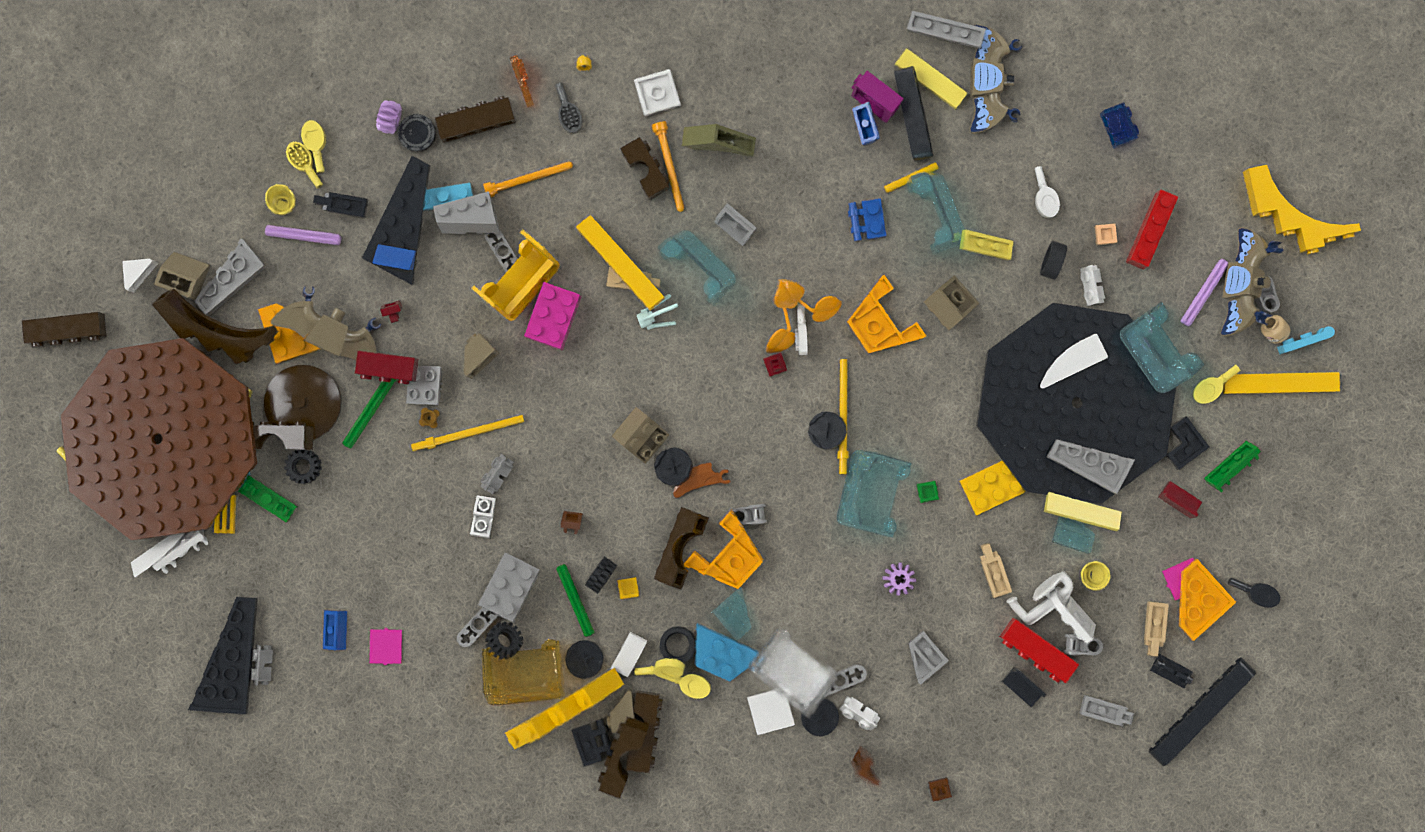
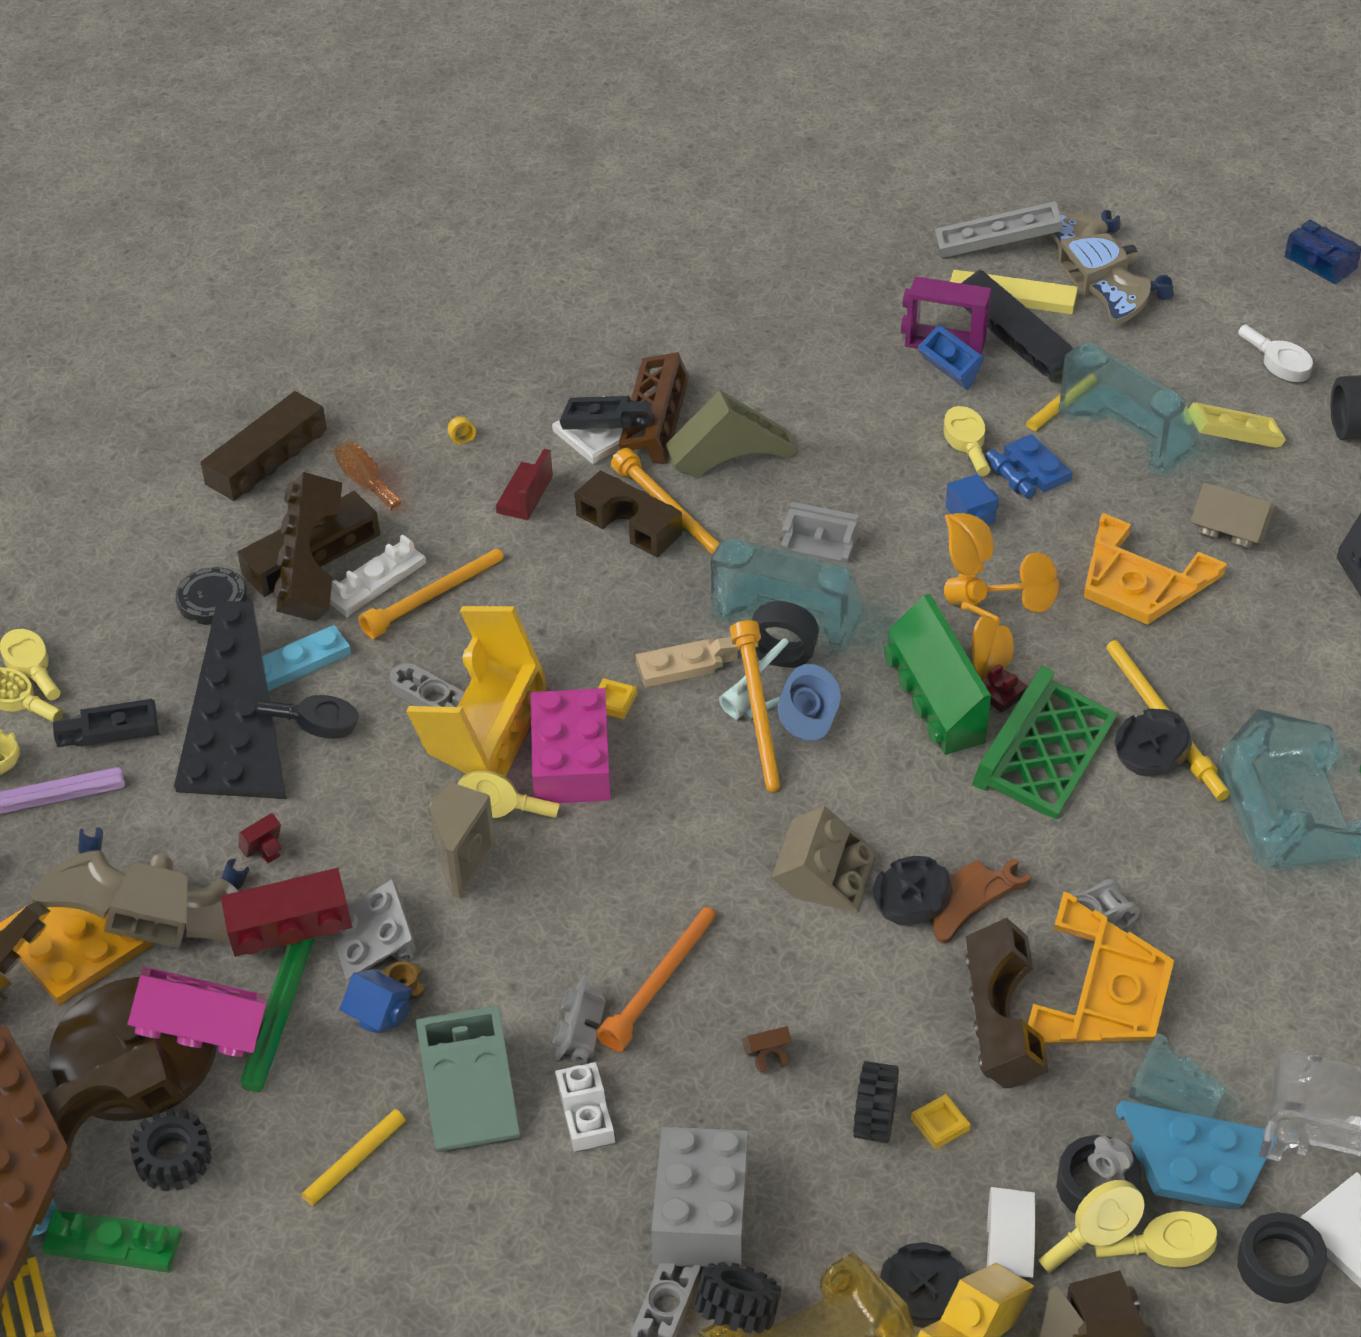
camera: 25 degrees left, 40 degrees down
(328, 413) = (197, 1011): none -> dark pink brick
(379, 499) = (353, 1157): none -> yellow bar
(388, 117) = (154, 579): lavender gear -> none
(394, 257) = (239, 753): blue slope -> none
(412, 429) = (376, 1000): none -> blue brick
(431, 442) = (490, 979): yellow bar -> none
(436, 487) = (467, 1078): none -> sand green slope
(441, 244) = (316, 714): none -> black piece
(468, 215) = (351, 655): light grey wedge -> none
(476, 33) = (264, 446): none -> dark brown brick
(476, 112) = (303, 586): none -> dark brown arch
(502, 155) = (376, 576): none -> white plate
(507, 331) = (505, 796): none -> light yellow piece
(511, 485) = (617, 1030): none -> orange piece
(568, 113) = (464, 494): dark grey piece -> none
(575, 600) = (847, 1183): green axle -> none
(588, 289) = (618, 697): none -> yellow tile
(600, 123) = (526, 487): none -> dark red panel
(620, 262) = (648, 634): yellow tile -> none
(656, 298) = (746, 637): none -> light orange piece
(659, 93) = (605, 413): none -> black hinge
(674, 342) = (809, 702): none -> medium blue piece
(680, 649) = (1110, 1158): none -> light grey plate
(682, 293) = (789, 617): none -> black tyre
(698, 93) = (664, 401): none -> reddish brown fence
(731, 726) = (1279, 1287): none -> black tyre
(742, 352) = (939, 677): none -> green slope
(770, 394) = (1014, 736): none -> green fence
(801, 332) = (1024, 628): white piece -> none
(822, 238) = (972, 497): none -> blue brick
(846, 183) = (966, 432): none -> light yellow piece

